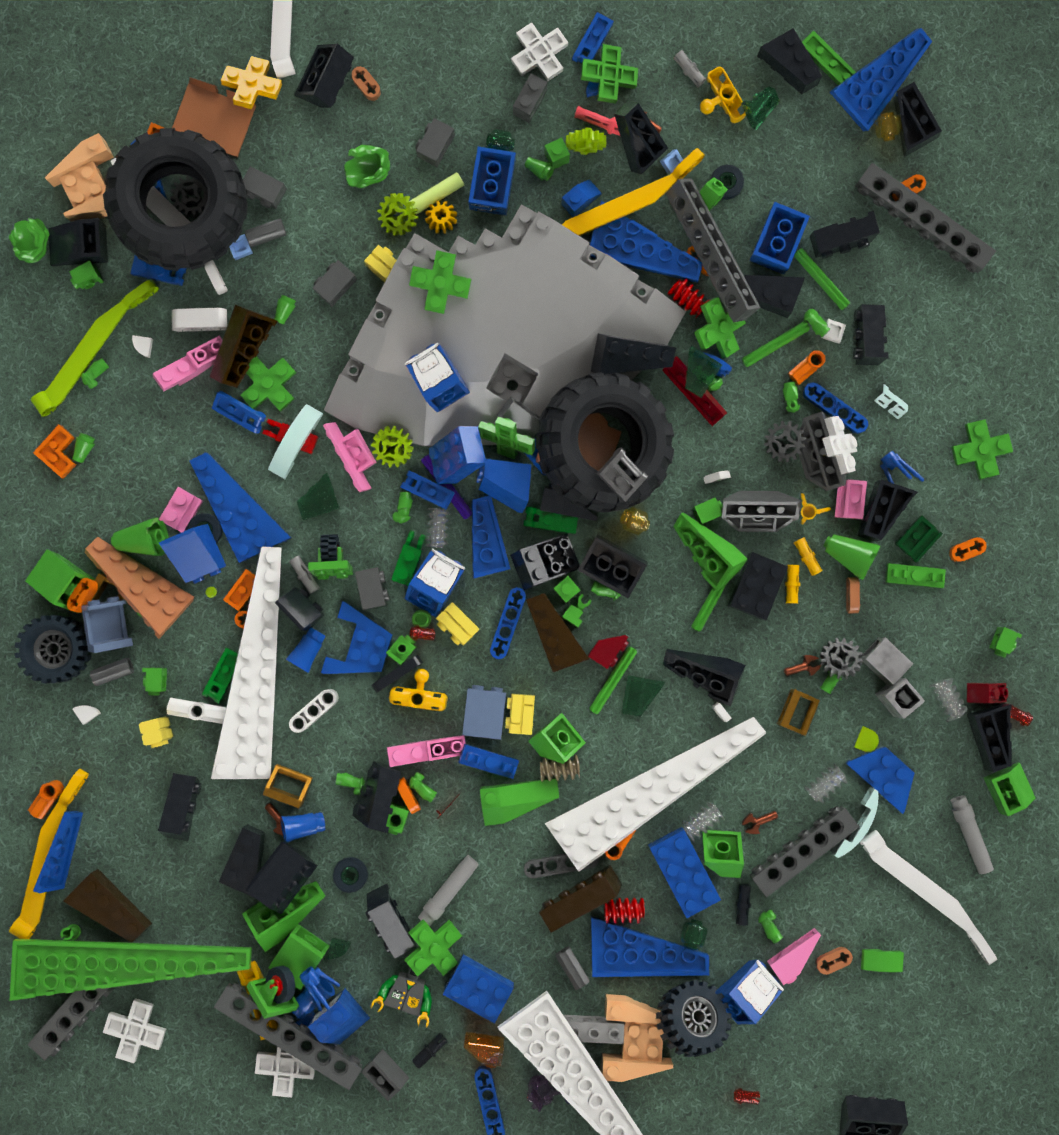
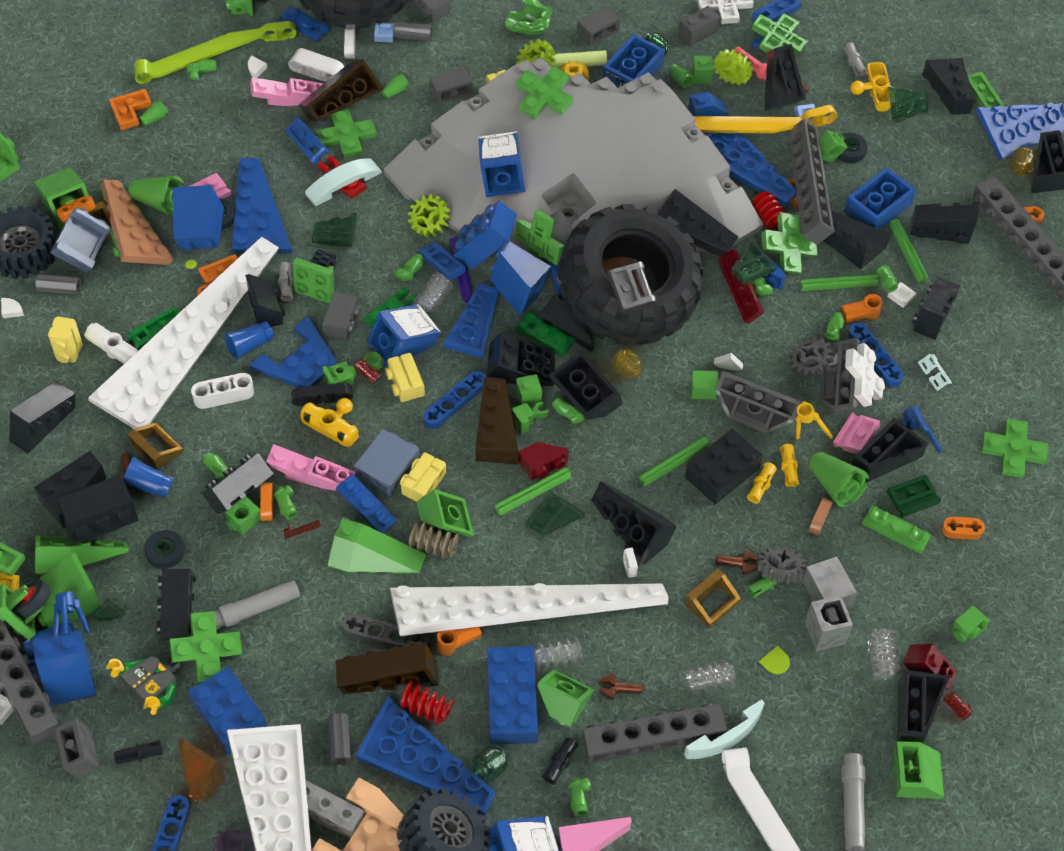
camera: 25 degrees right, 30 degrees down
(155, 680) = (92, 305): bright green brick -> none
(353, 454) = (390, 209): bright pink bracket -> none
(713, 553) = (691, 418): bright green wedge -> none
(886, 774) = (784, 702): blue wing -> none

